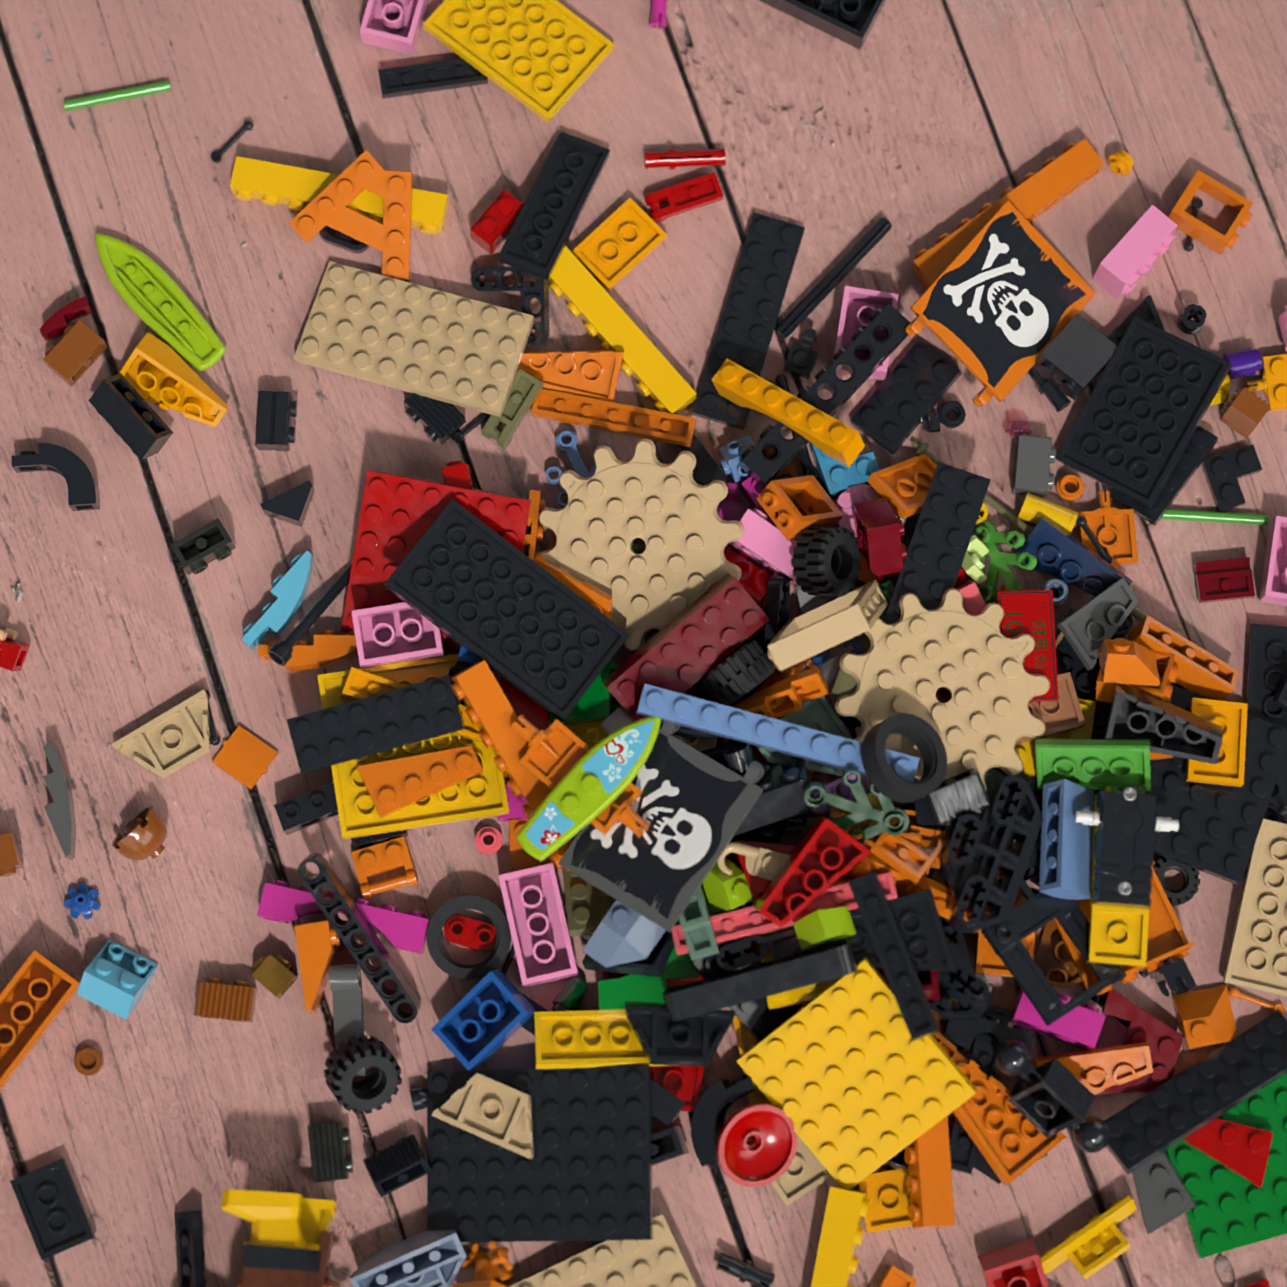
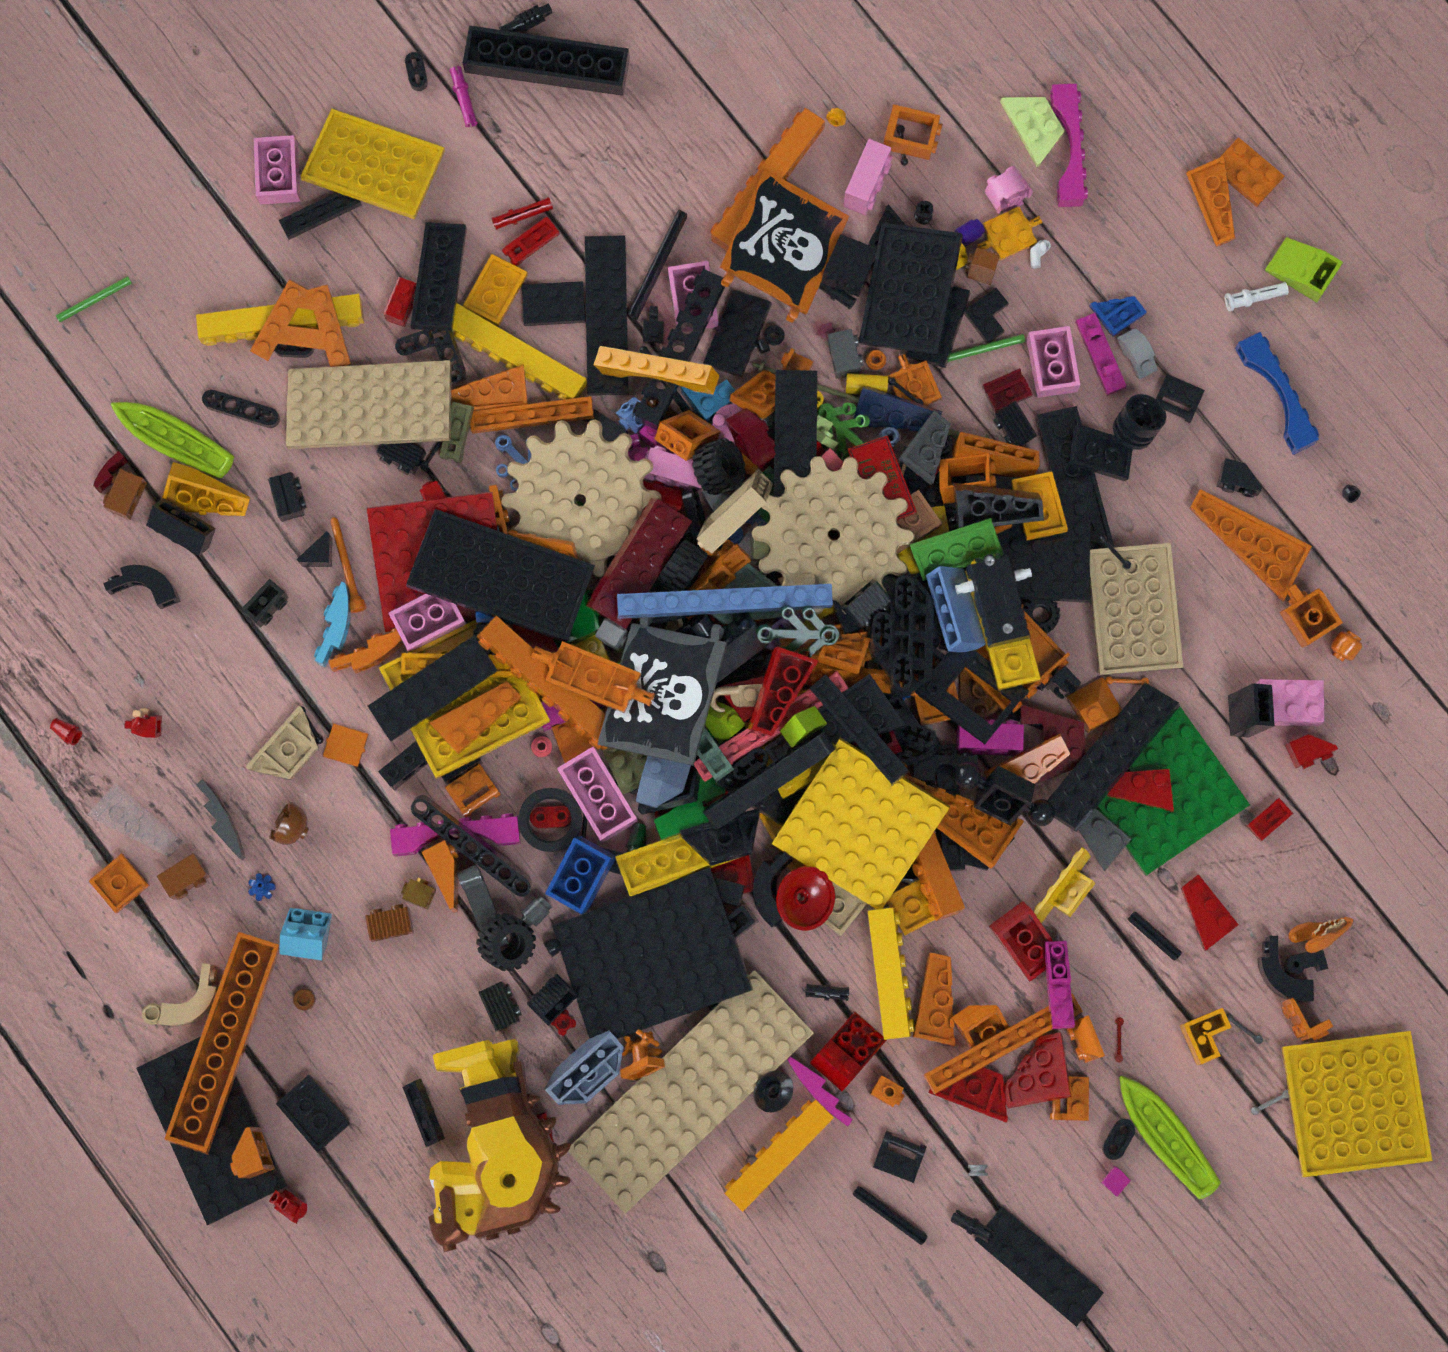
camera: 15 degrees left, 0 degrees up
(216, 157) = (181, 320): black hinge -> none
(252, 293) = (242, 405): none -> black beam
(281, 651) = (347, 659): black piece -> none
(317, 582) = (356, 603): none -> orange piece
(408, 1203) = (570, 1023): none -> red plate
(413, 1047) = (536, 911): none -> dark grey brick
(492, 1113) = (608, 938): tan wing -> none
(589, 787) = (601, 682): piece -> none
(686, 284) = (553, 303): none -> black plate
(928, 744) = (806, 601): black tyre -> none
(967, 458) = (794, 361): none -> orange bracket
(1127, 663) = (957, 468): orange slope -> none
(1218, 627) = (1014, 424): none -> black brick

